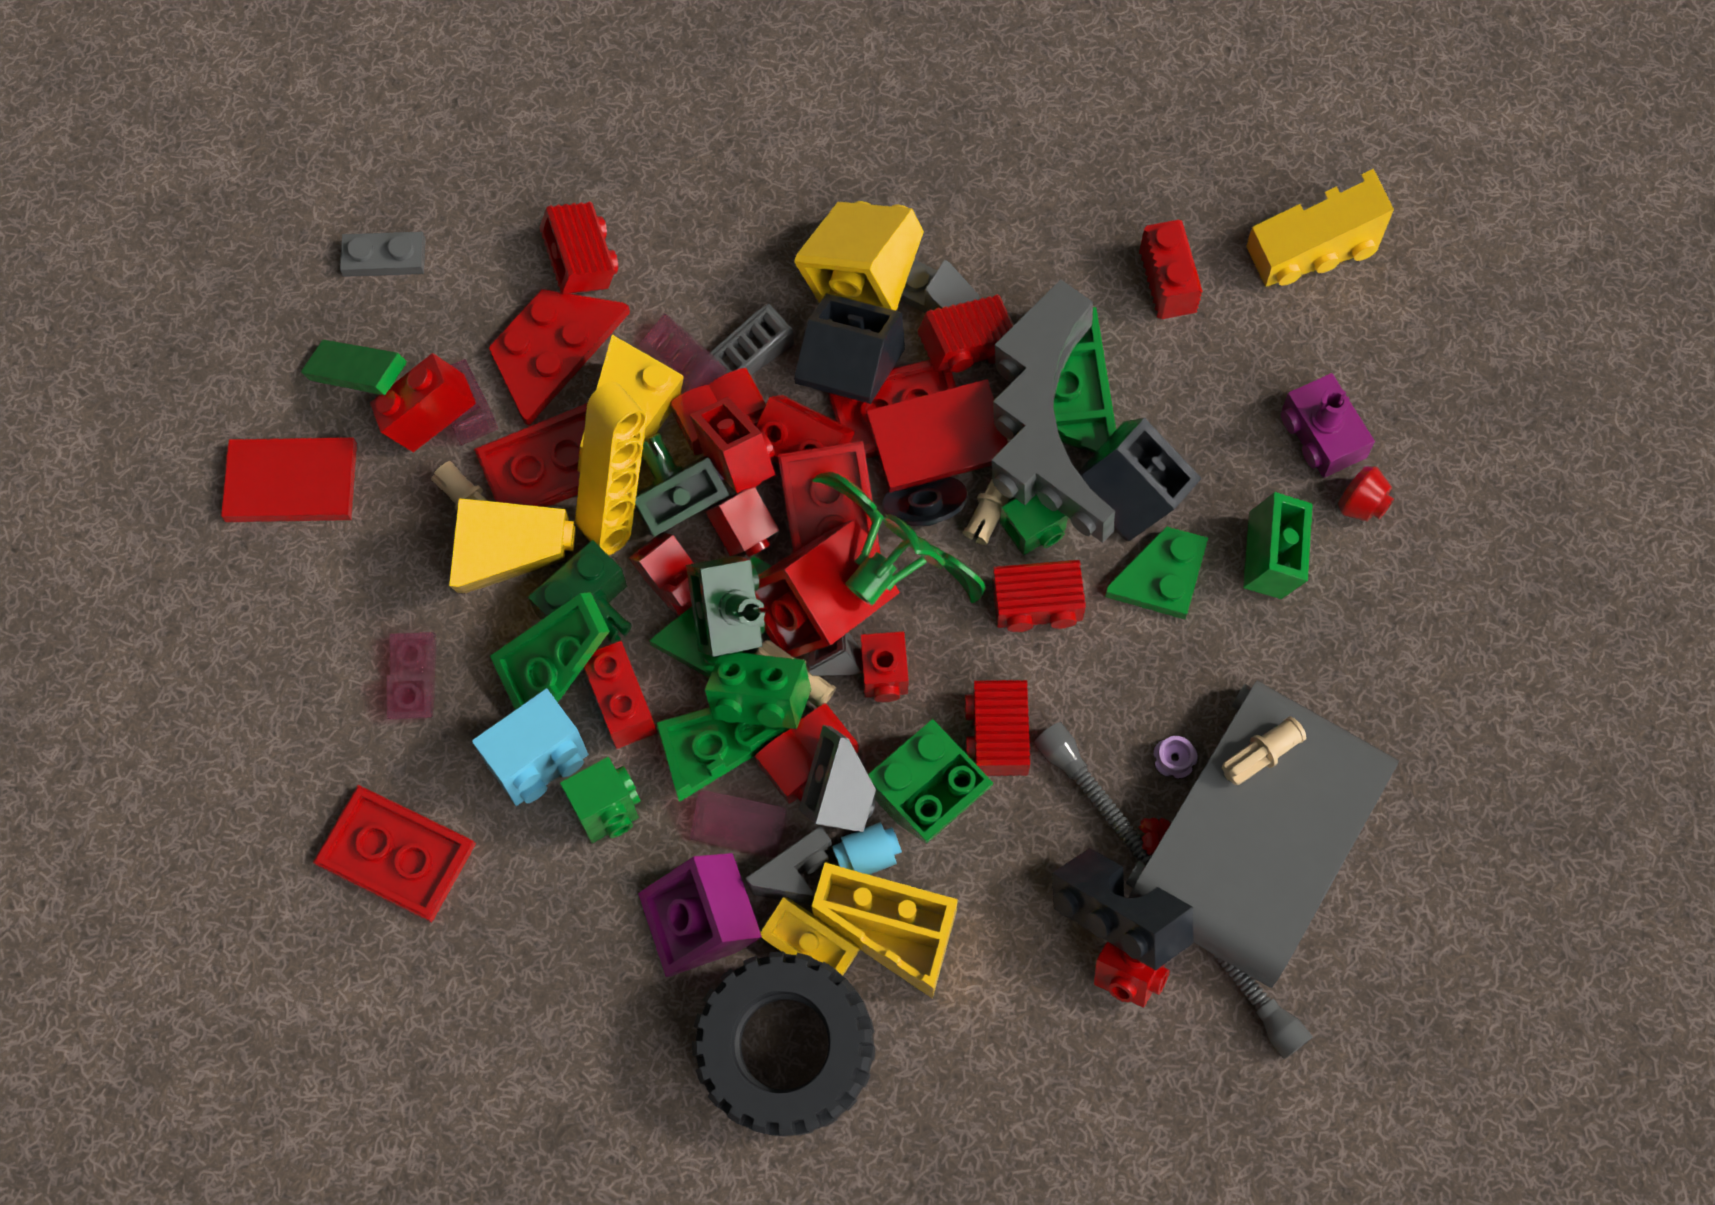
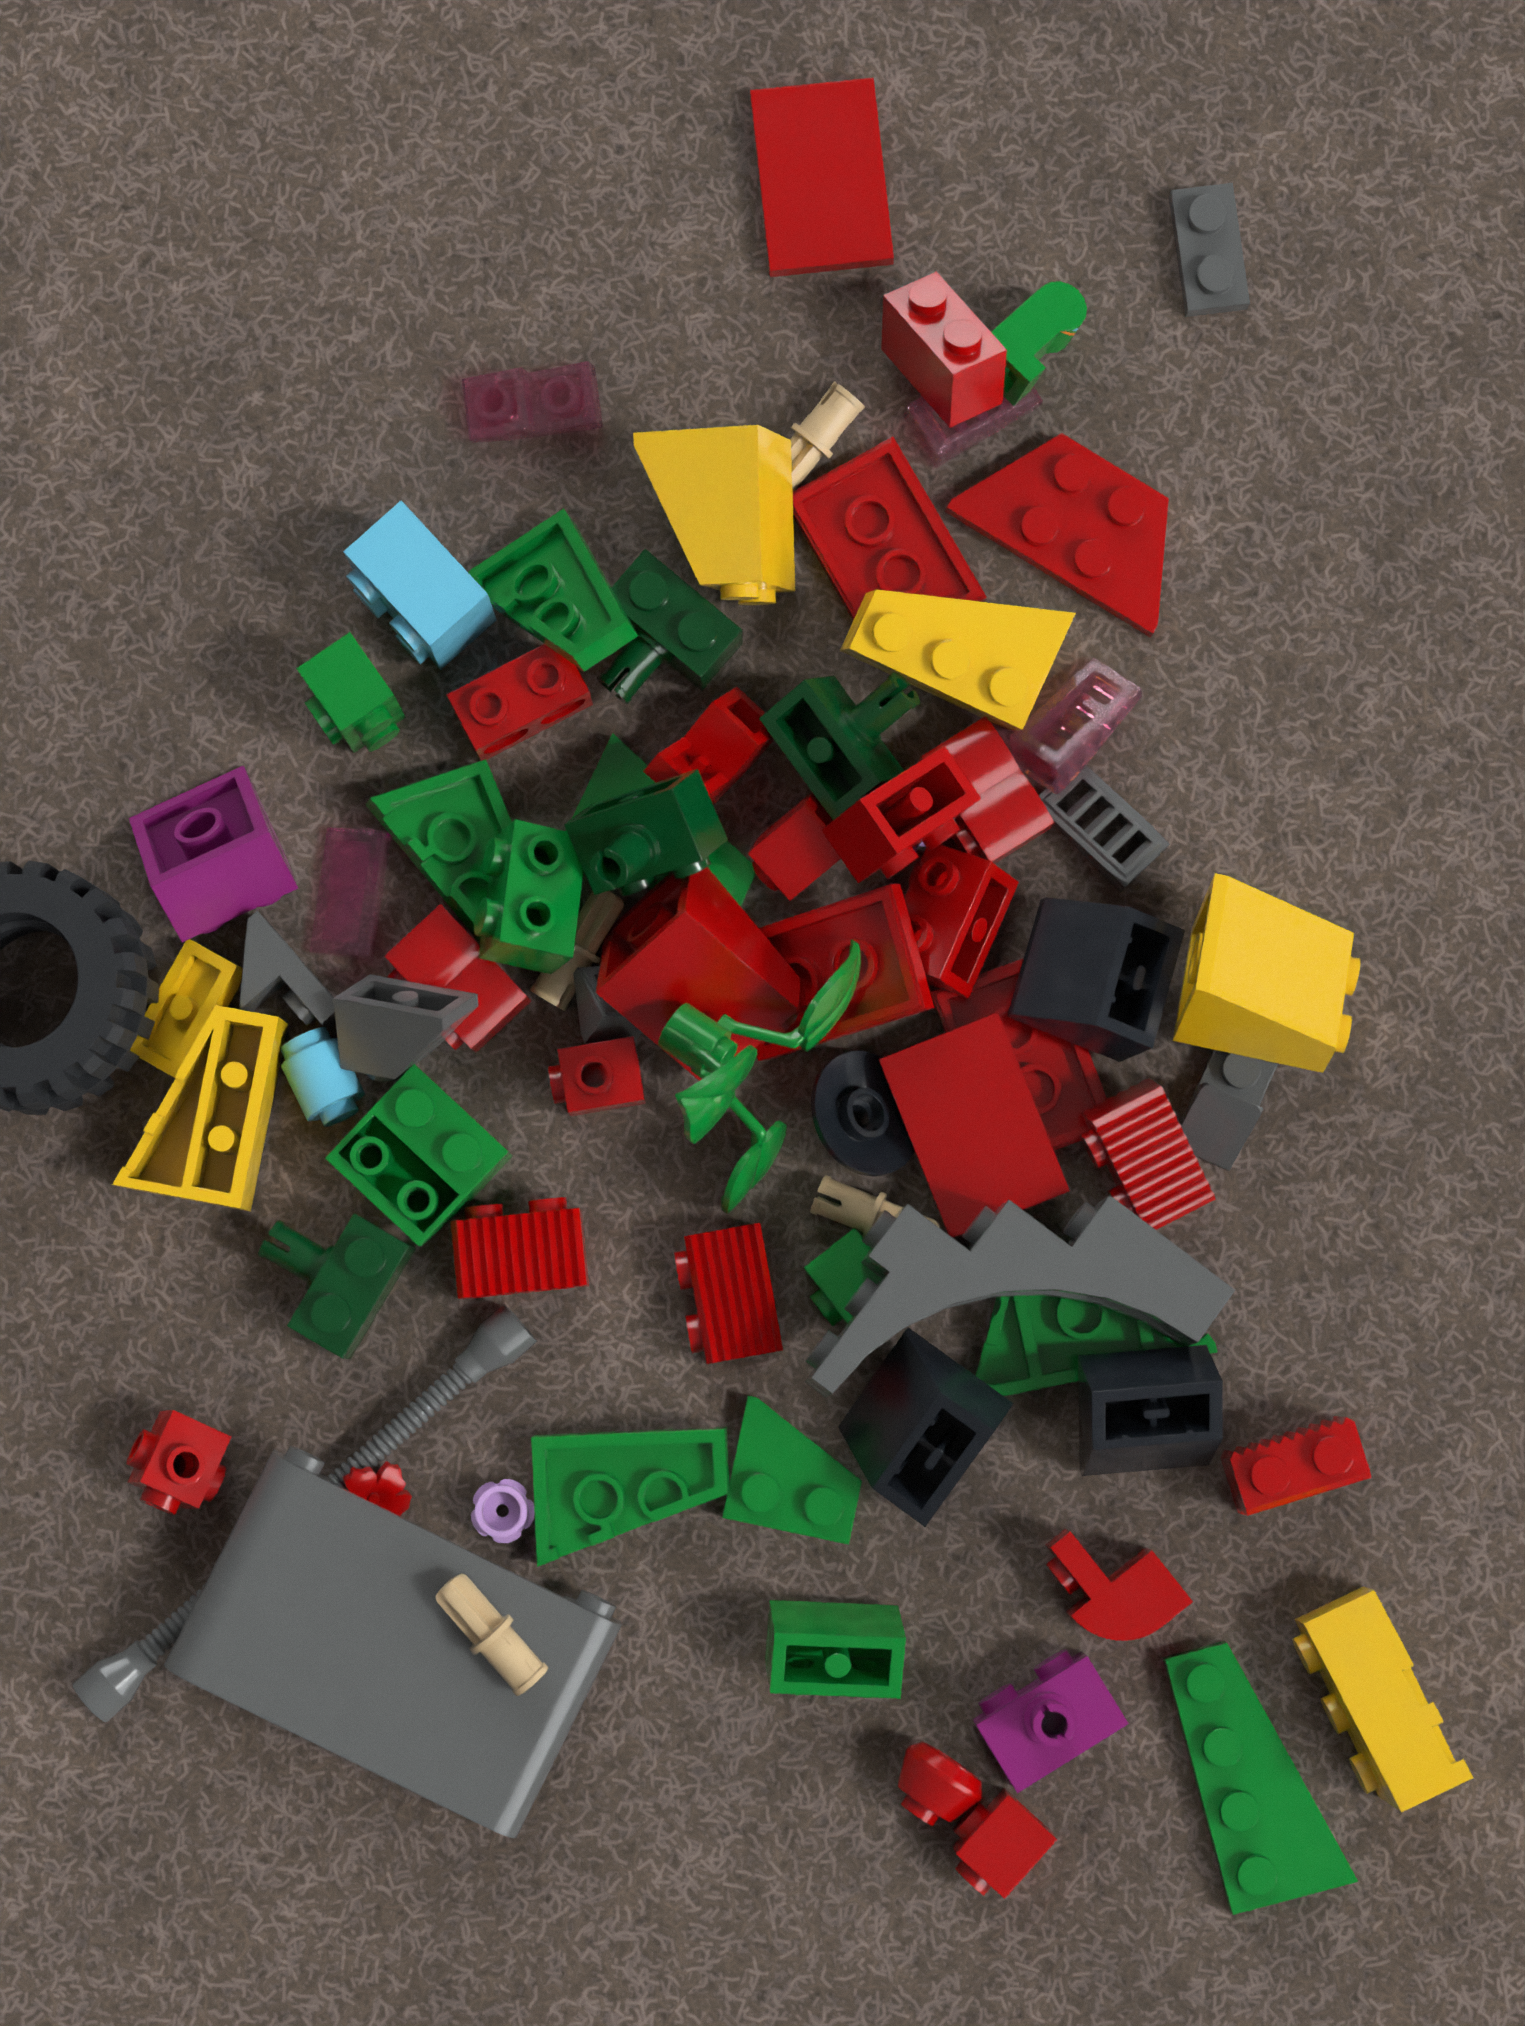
camera: 80 degrees right, 15 degrees up
(354, 367) = (994, 238): green tile -> none
(394, 853) = (272, 421): red tile -> none
(414, 345) = (1038, 327): none -> green leg
(578, 247) = (1239, 543): red brick -> none
(610, 467) = (826, 637): yellow beam -> none
(1012, 843) = (343, 1282): none -> dark green brick
(1131, 343) = (1148, 1410): none -> black slope
(1144, 927) = (209, 1475): black arch -> none
(1159, 677) = (620, 1480): none -> green wing
(1251, 377) = (1127, 1603): none -> red brick
(1376, 317) = (1254, 1802): none -> green wing
(1406, 459) = (1000, 1844): none -> red brick

